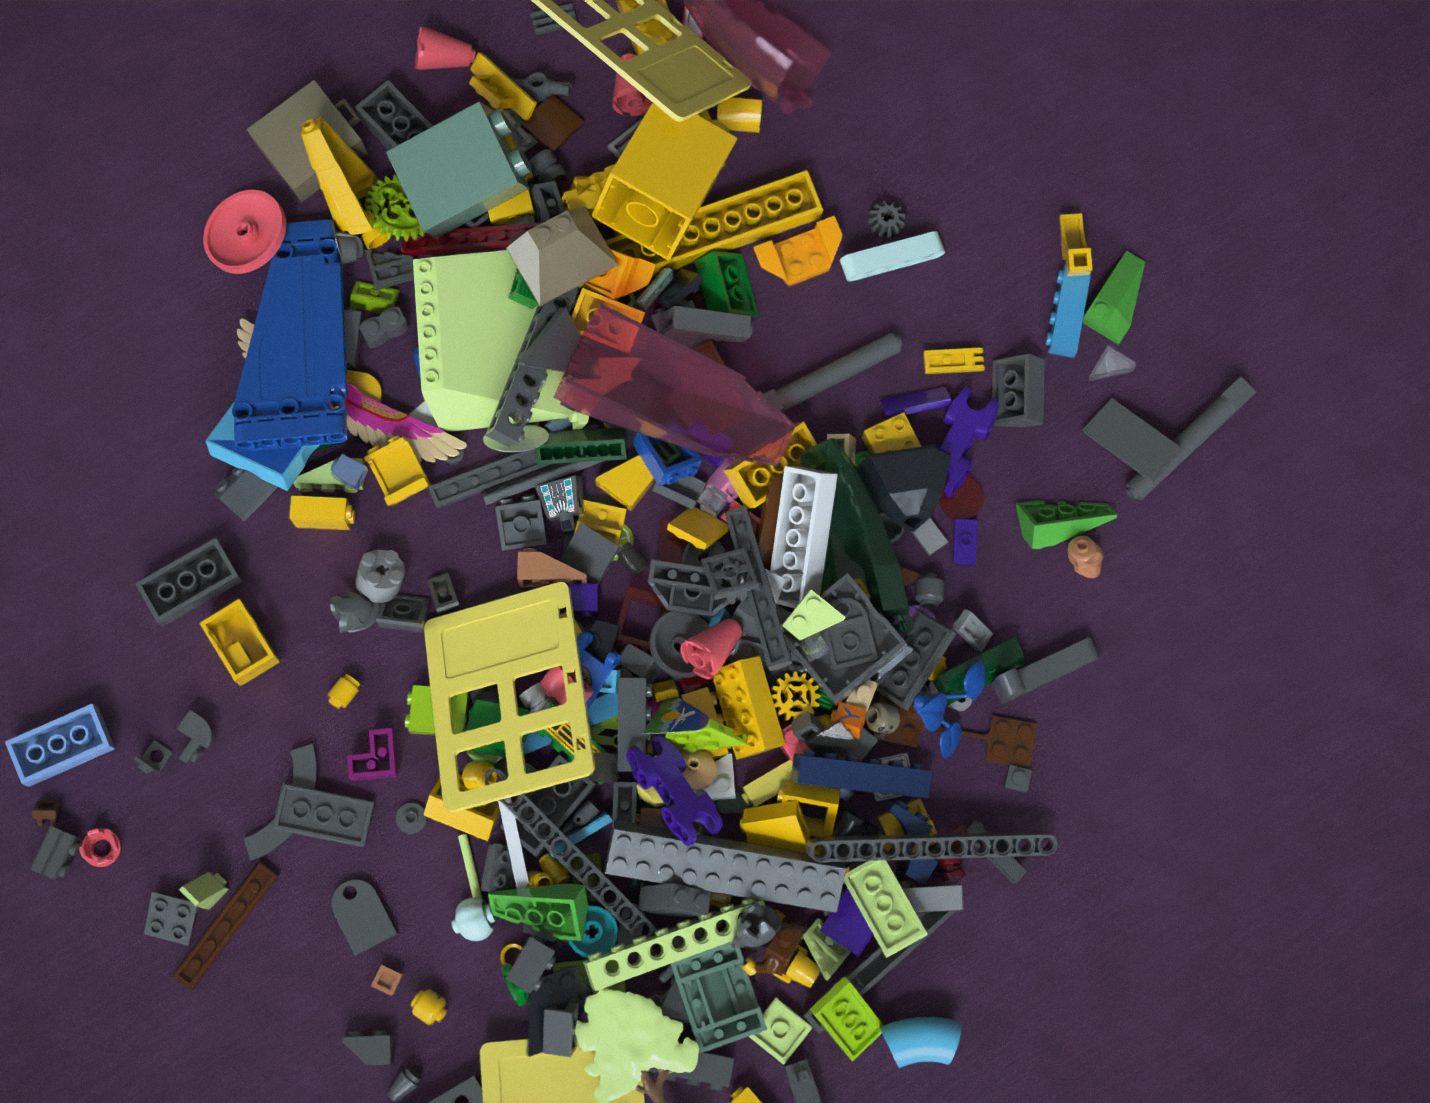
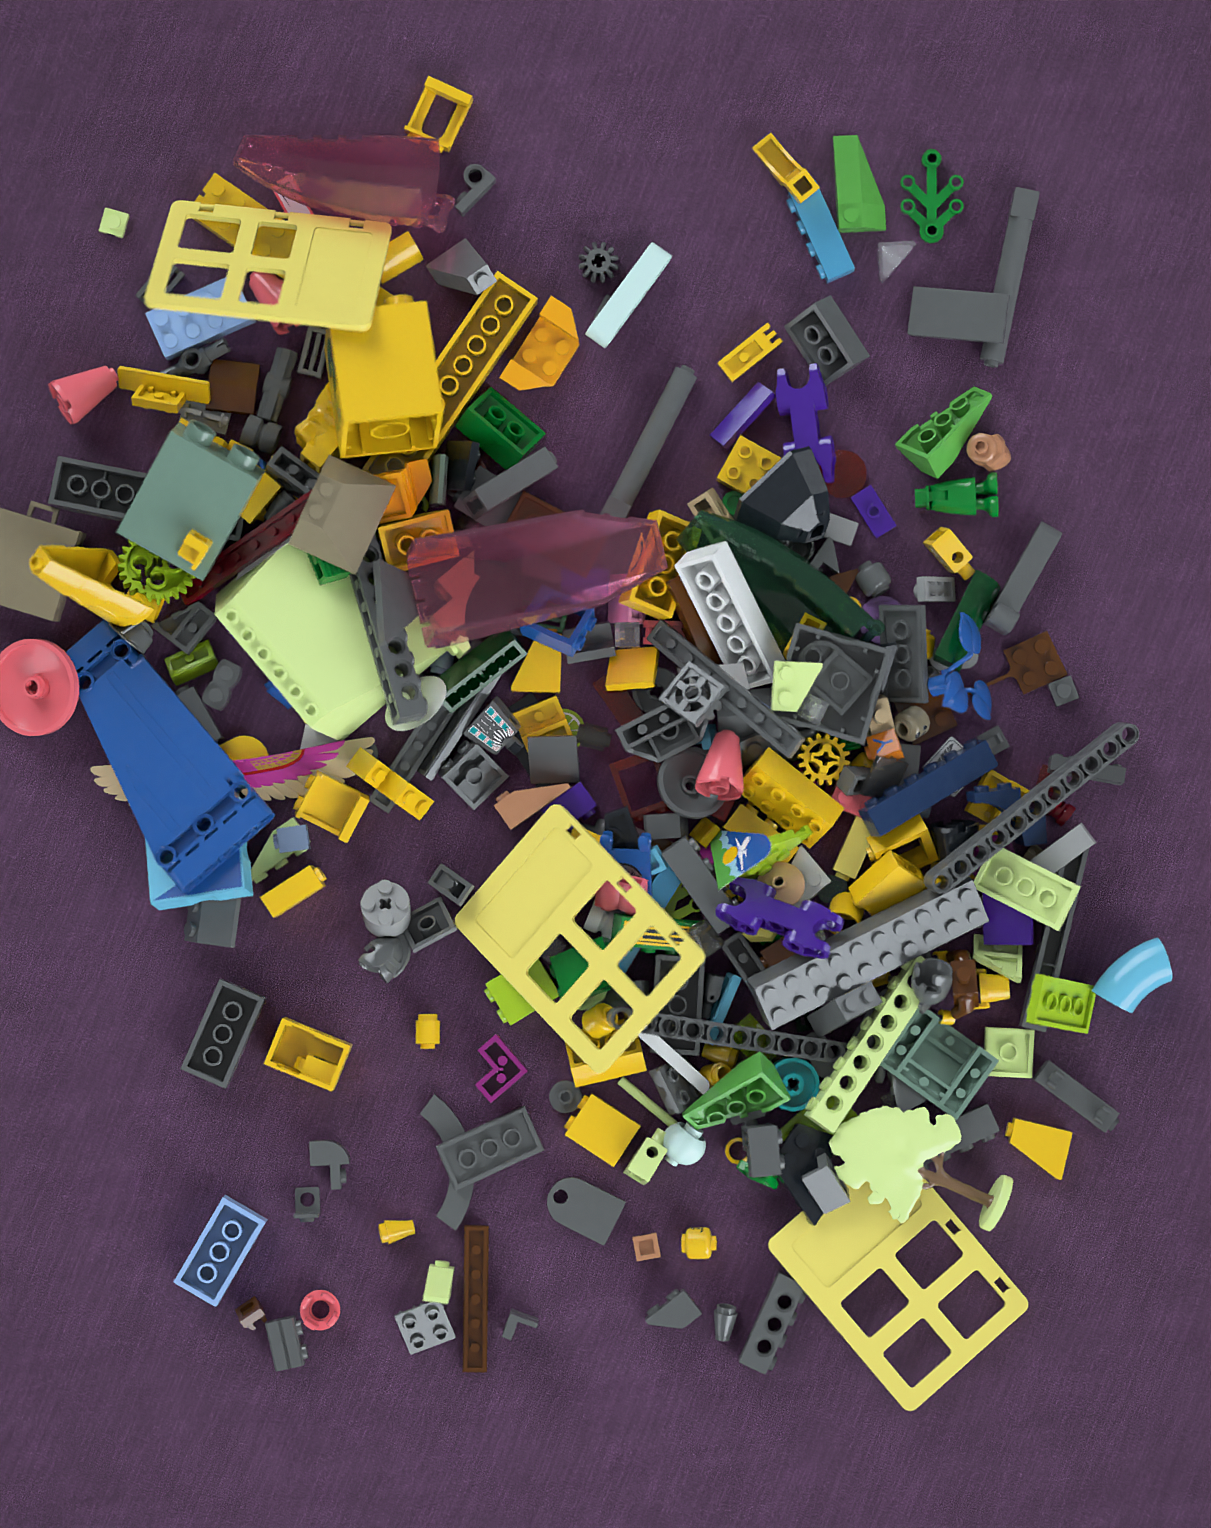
camera: 30 degrees left, 10 degrees up
(204, 827) = (395, 1230): none -> yellow cone
(240, 962) = (515, 1317): none -> dark grey panel
(419, 862) = (601, 1129): none -> yellow brick
(428, 912) = (643, 1167): none -> yellowish green torso
(434, 201) = (194, 548): none -> yellow panel
(453, 485) = (390, 783): none -> yellow arch
(563, 59) = (185, 330): none -> light blue brick
(586, 144) = (277, 385): none -> dark grey piece
(731, 825) = (844, 907): none -> yellow helmet
(781, 153) = (462, 269): none -> dark grey slope
(833, 109) = (477, 190): none -> dark grey plate
(853, 18) = (434, 87): none -> yellow panel
(905, 548) = (826, 557): none -> dark grey slope
(939, 779) = (995, 739): none -> dark grey tile
(999, 602) = (943, 545): none -> yellow torso
(1040, 576) = (960, 496): none -> green piece
(1169, 345) = (931, 200): none -> green plant

